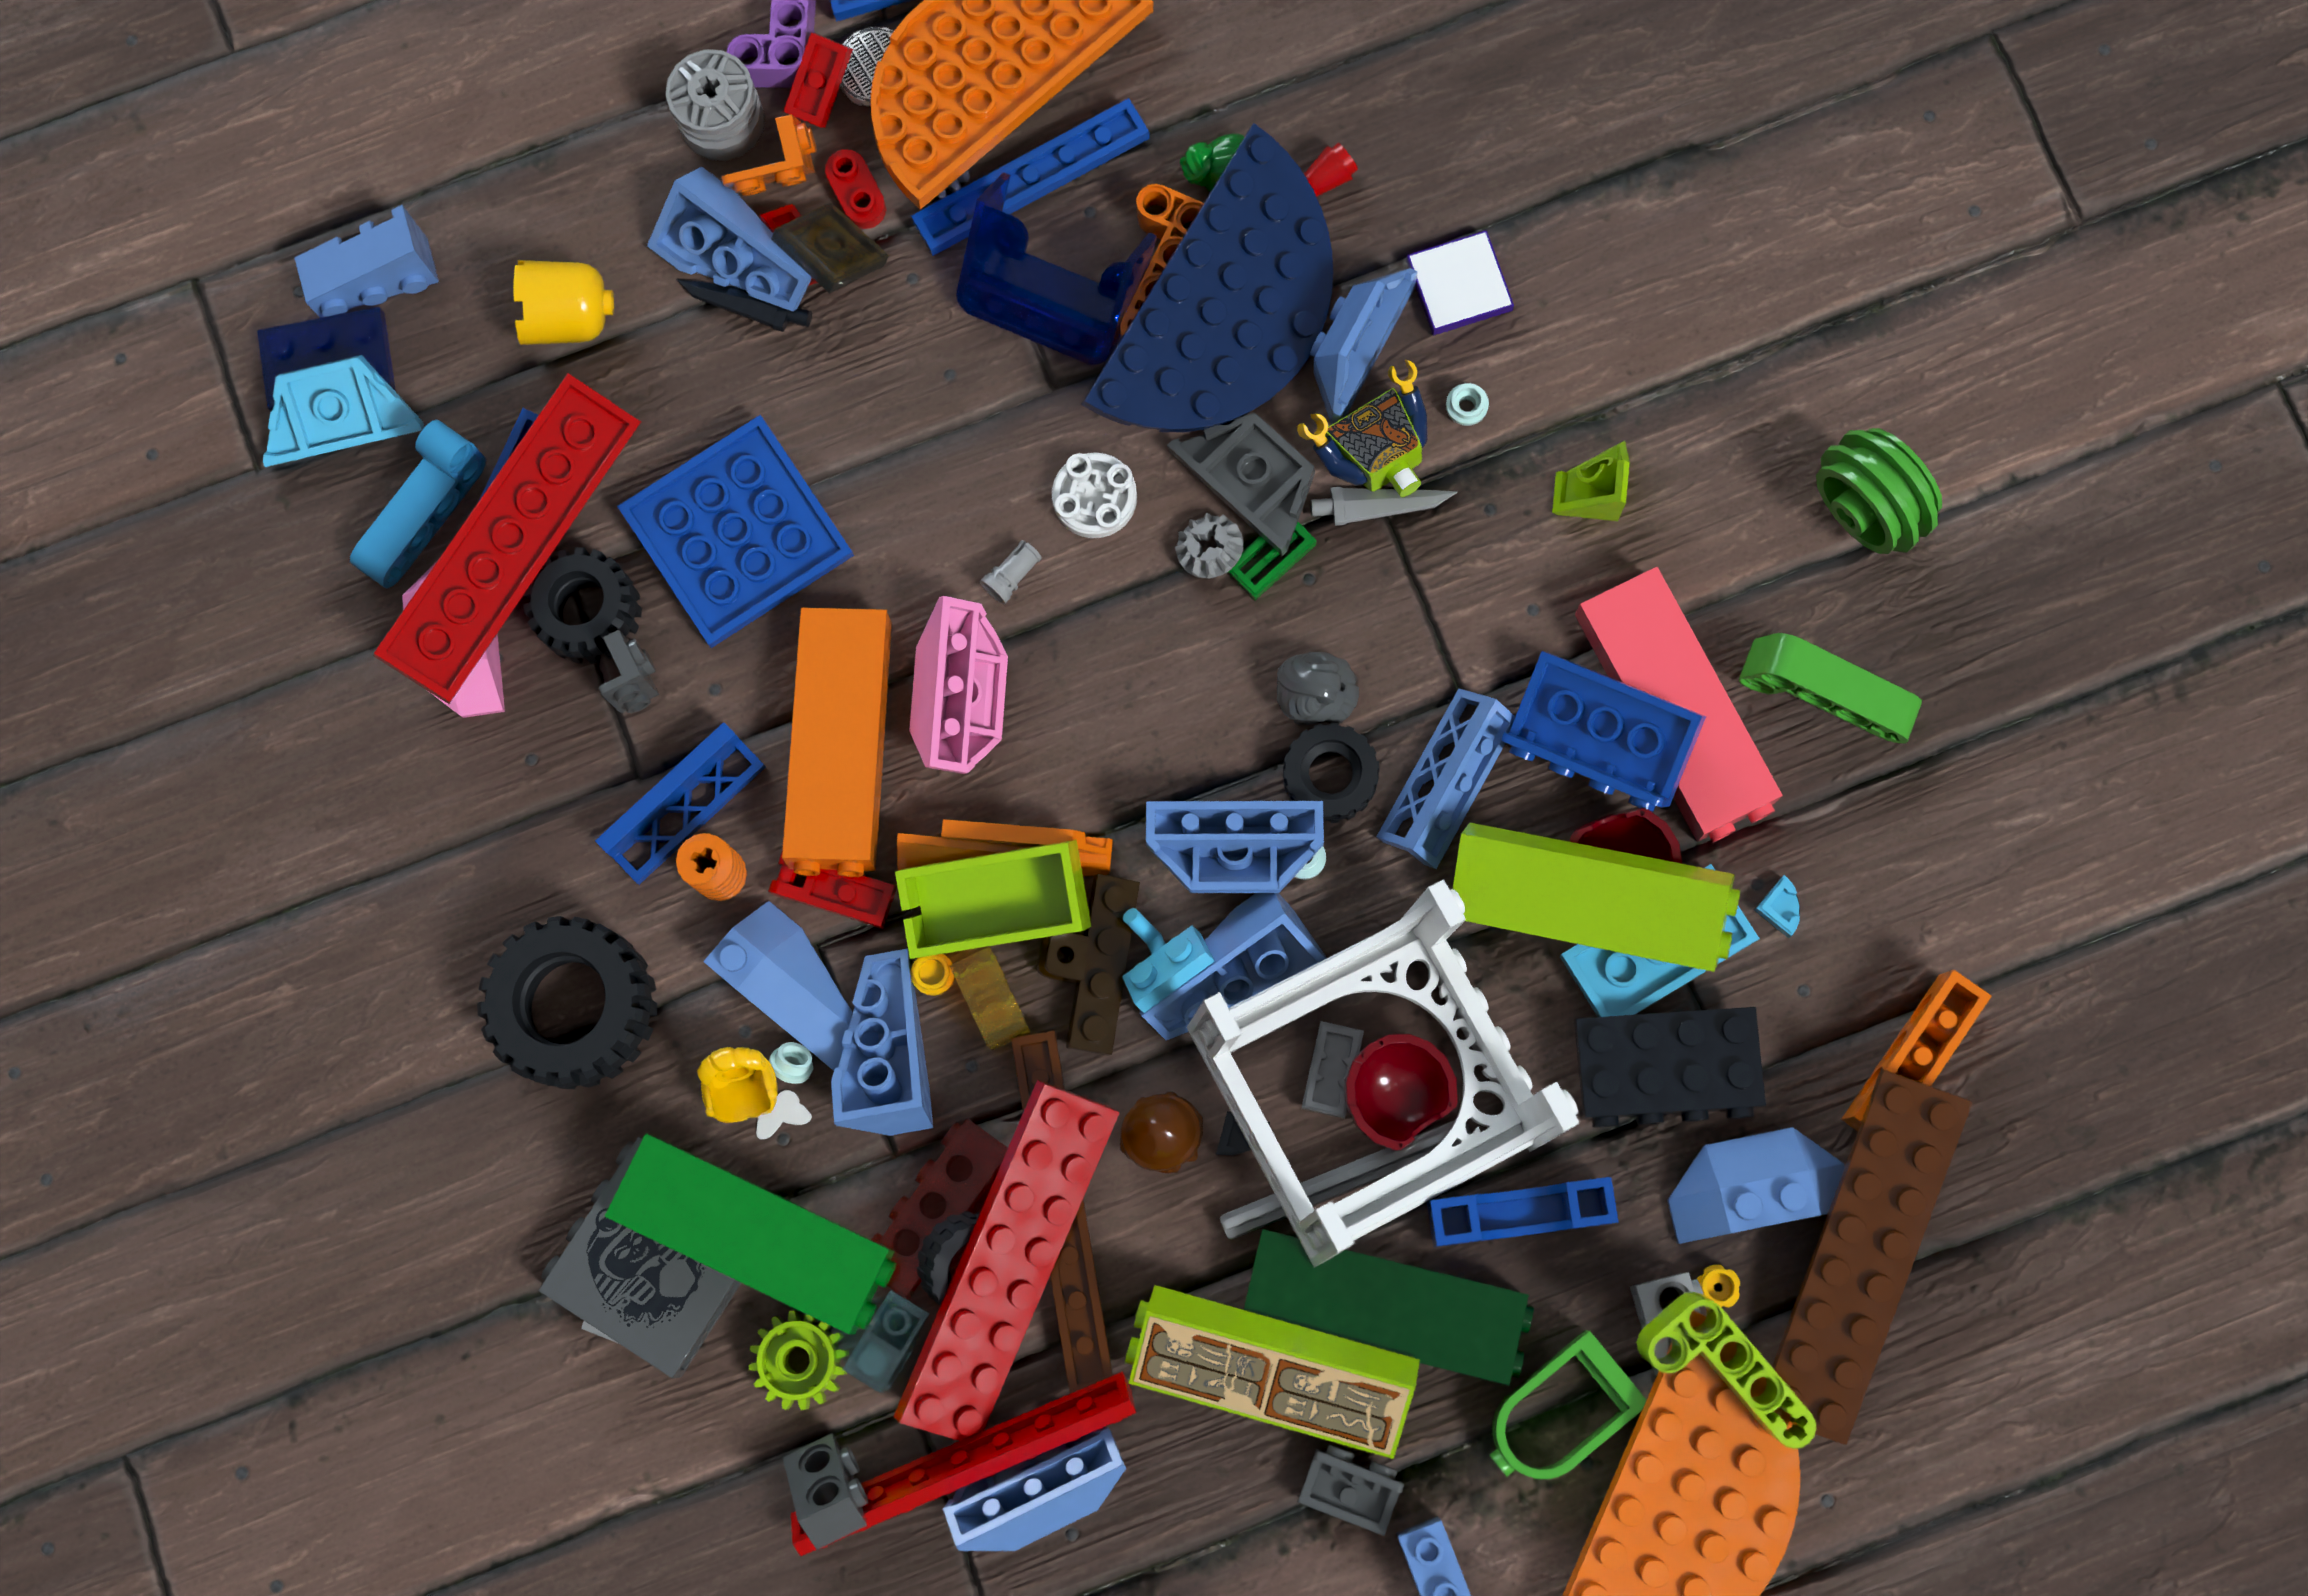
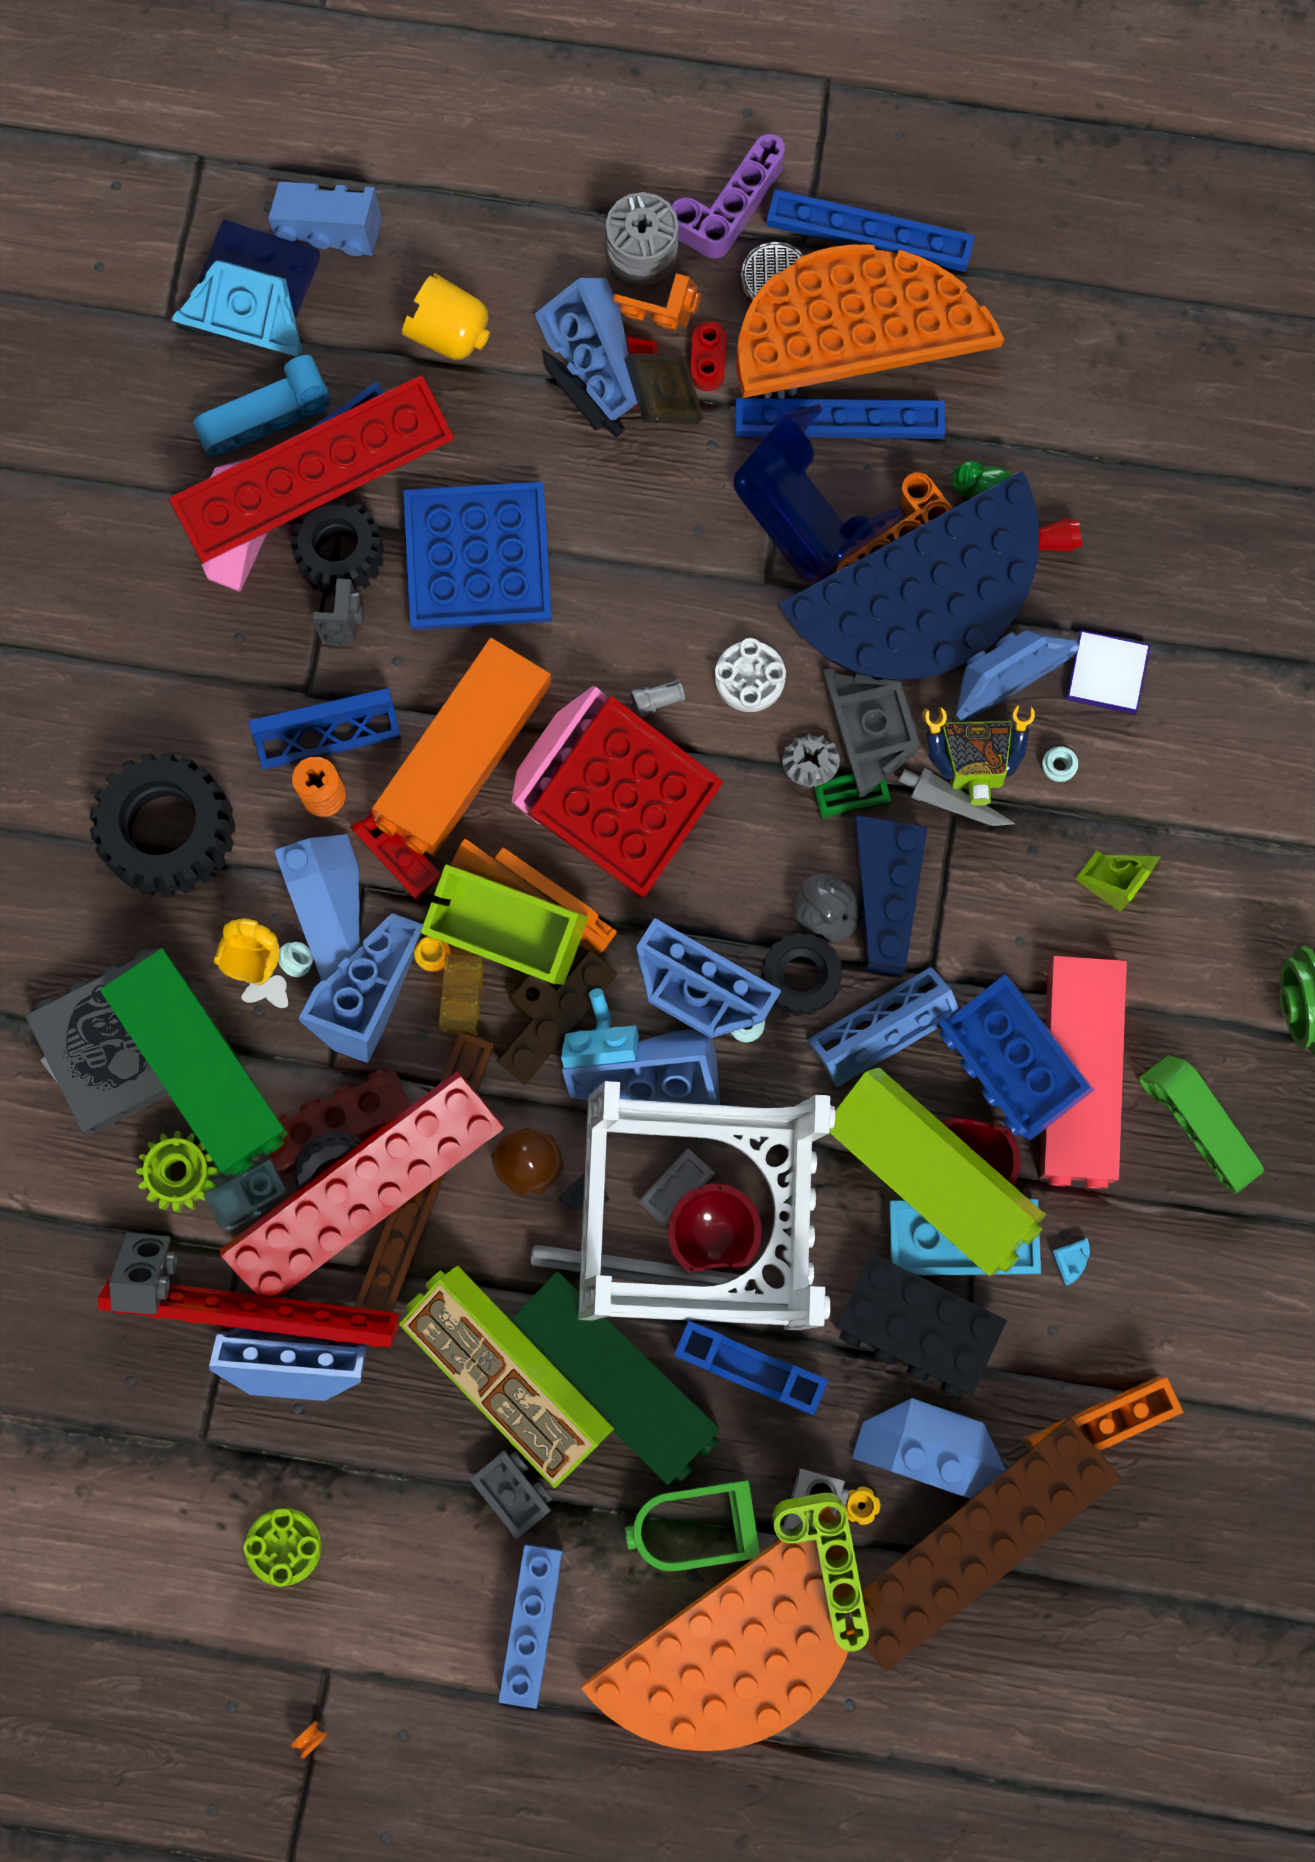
camera: 20 degrees right, 0 degrees up
(818, 80) = (726, 261): red plate -> none
(1040, 694) = (625, 797): none -> red plate
(1363, 622) = (888, 878): none -> dark blue wedge

